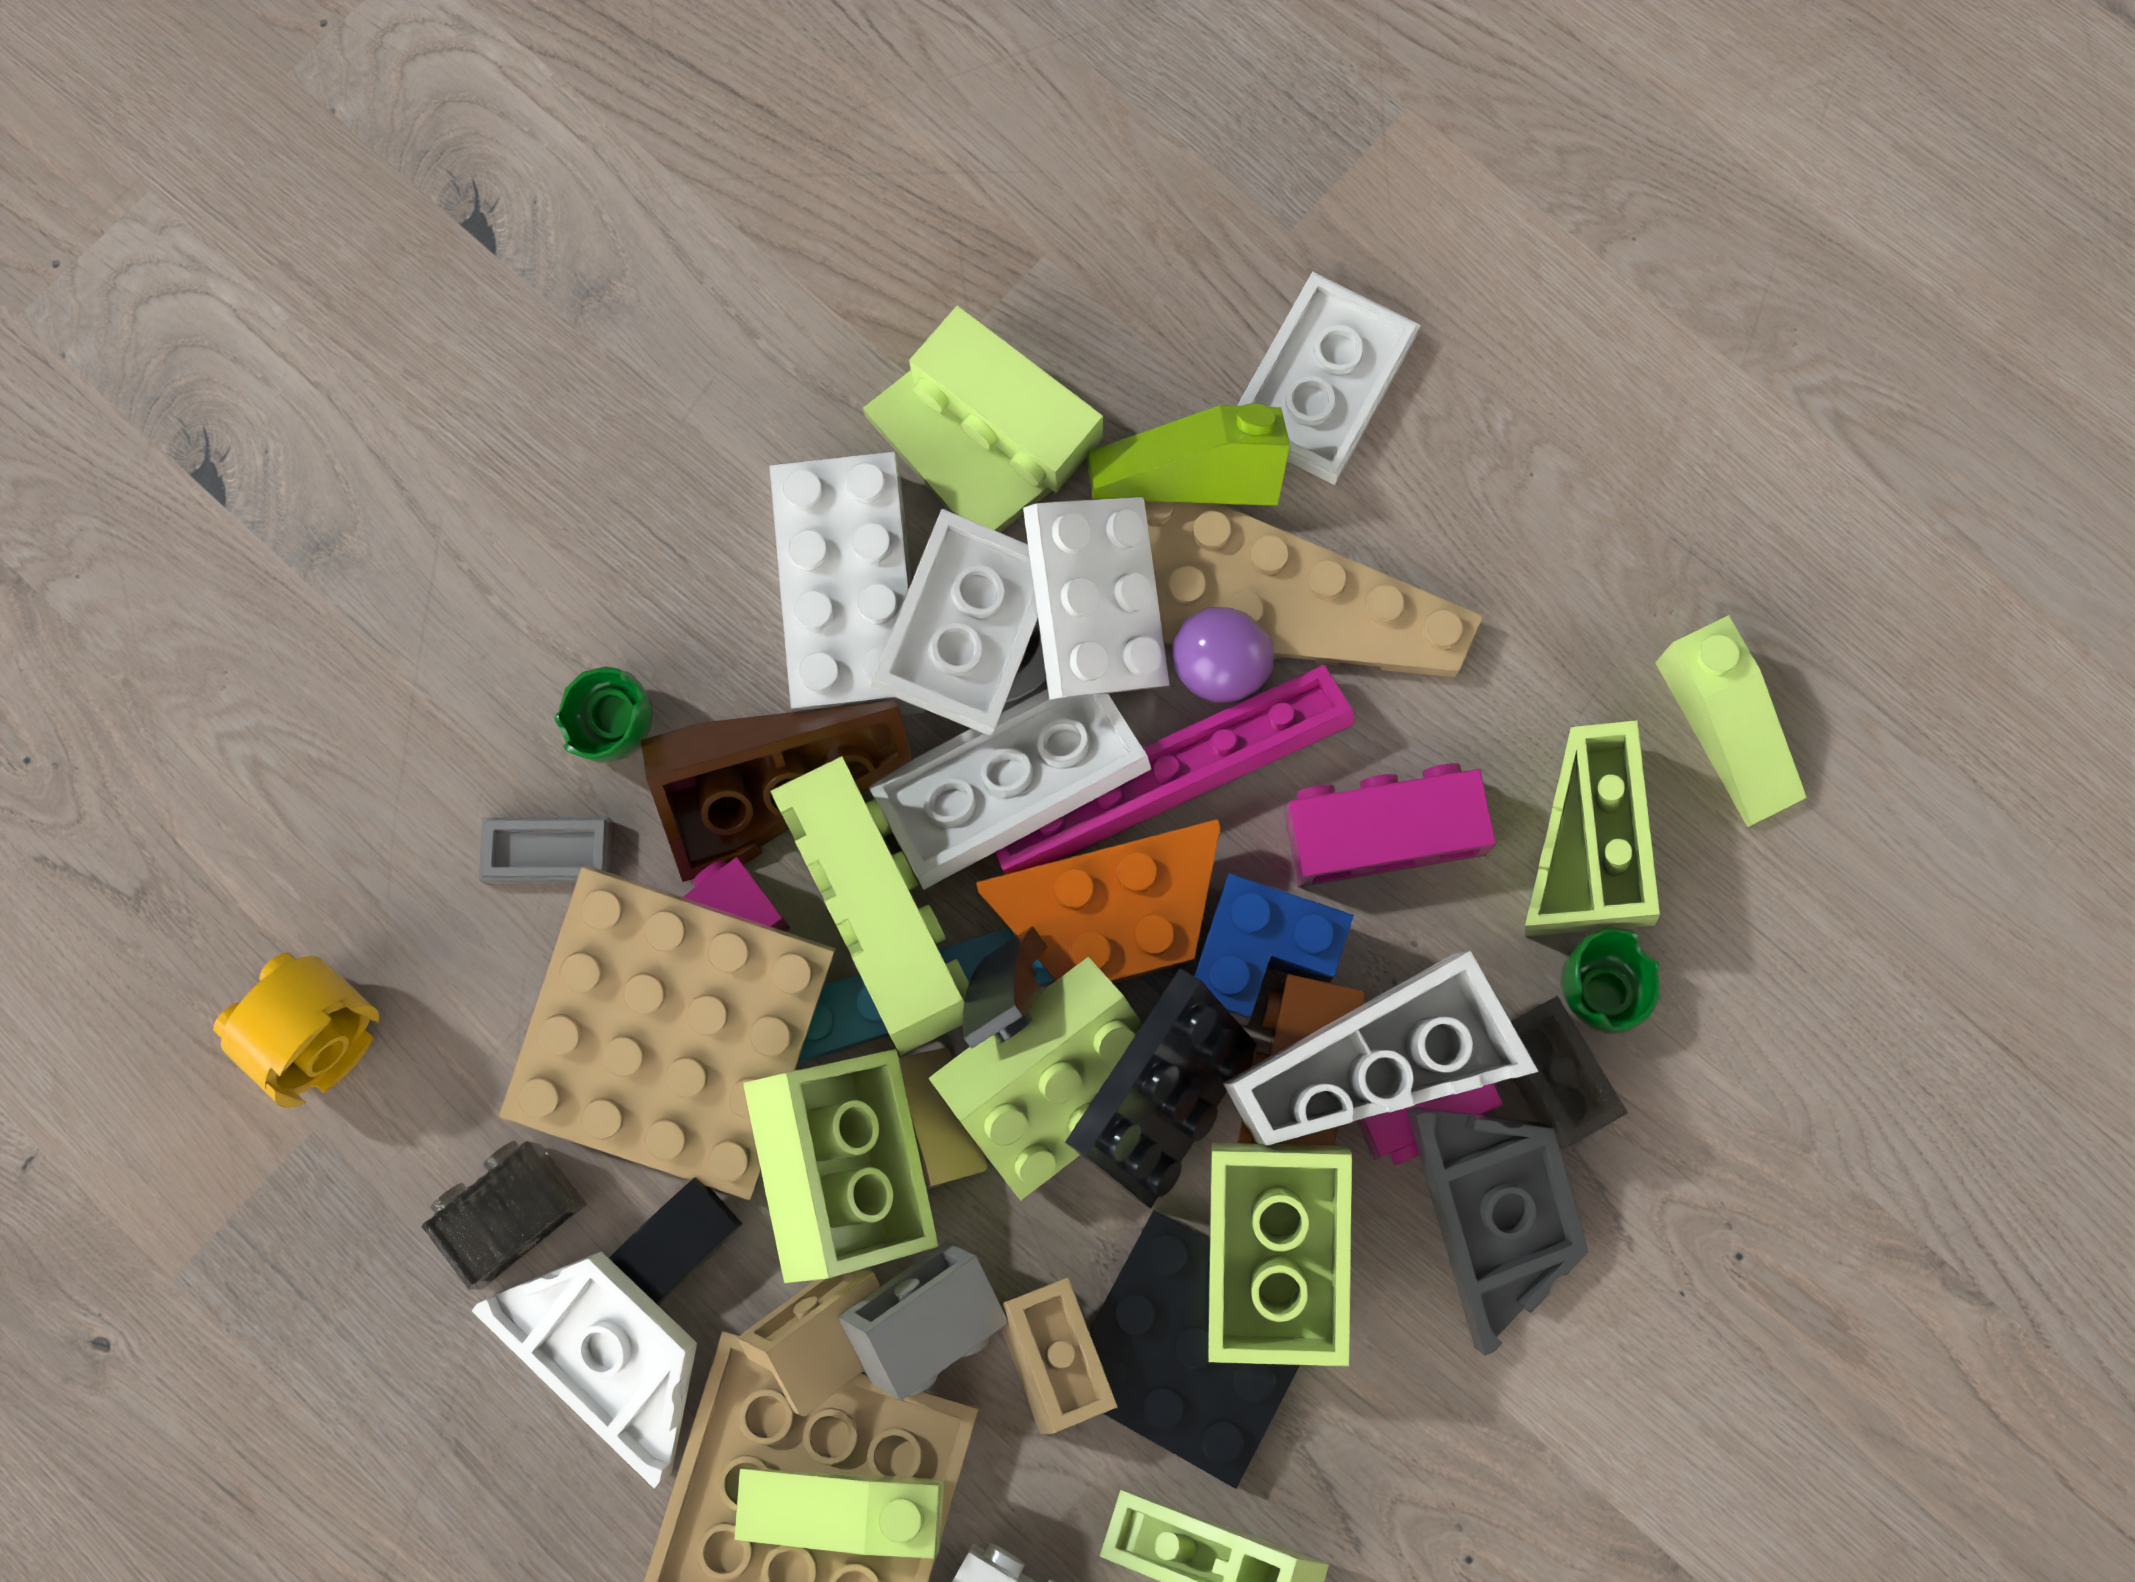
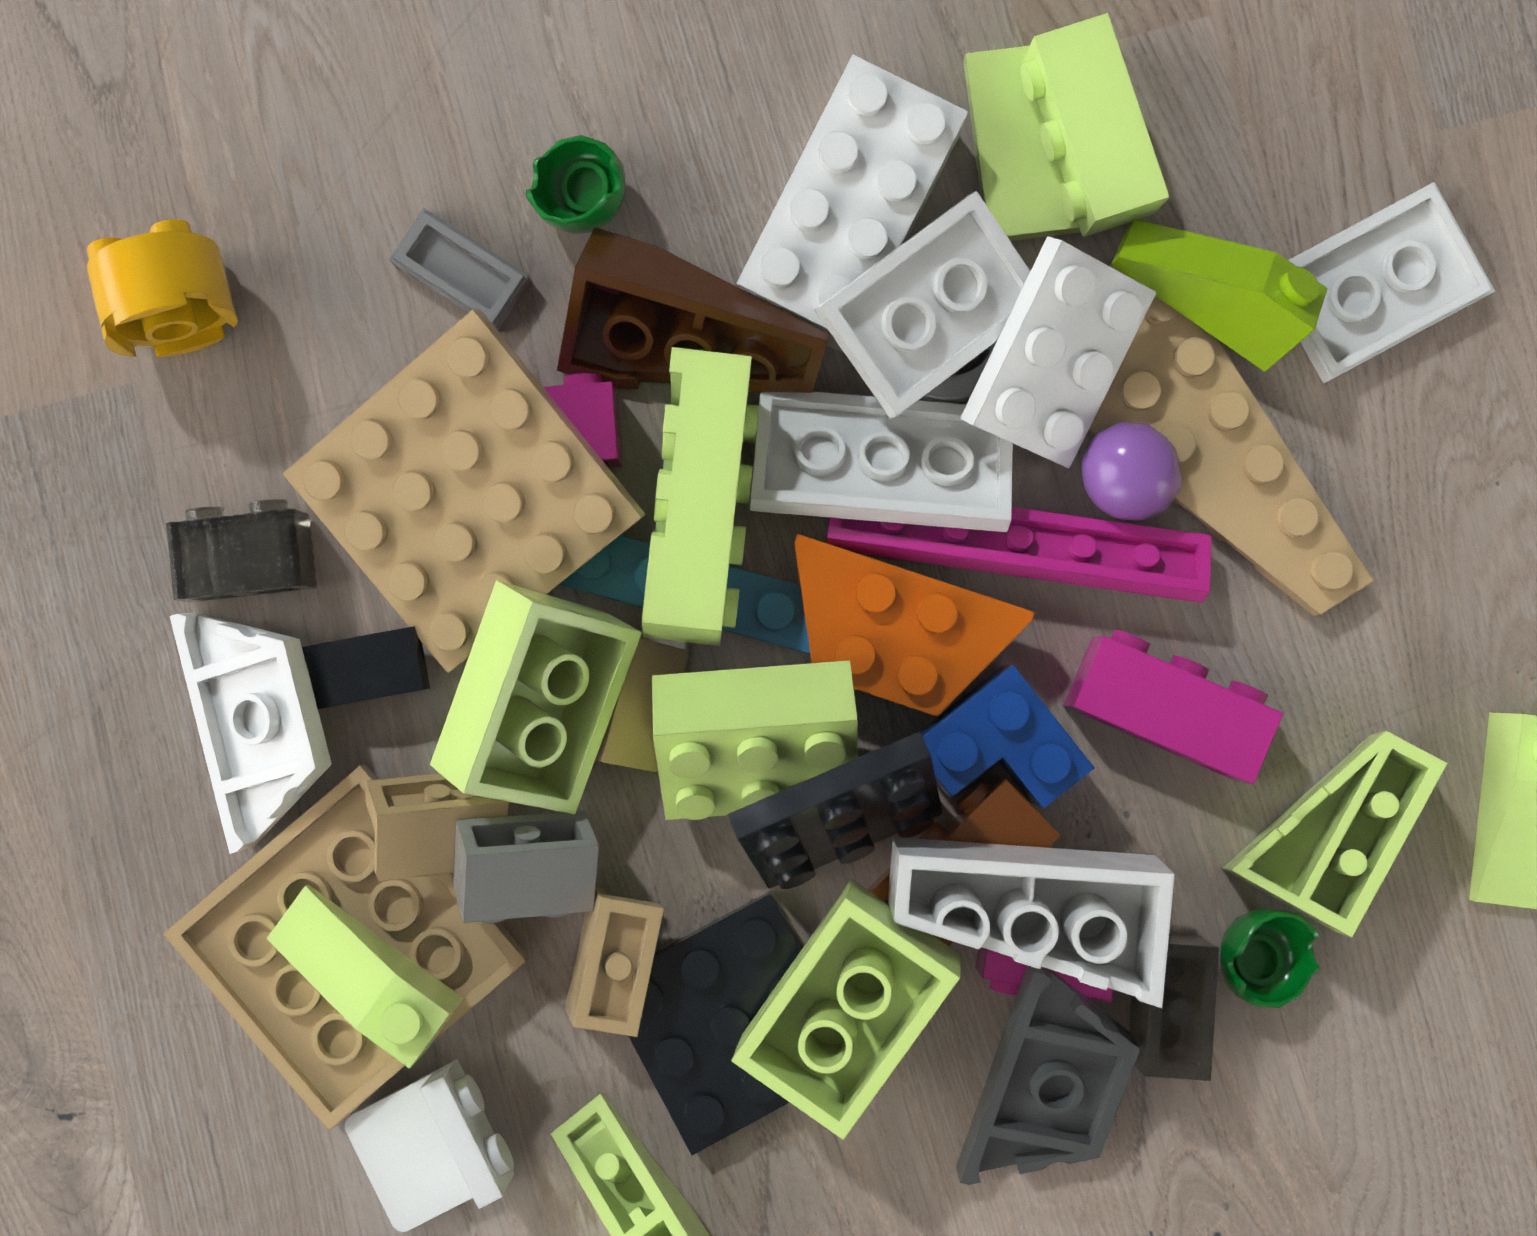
camera: 25 degrees right, 10 degrees up
(1003, 990) = (760, 644): black slope -> none

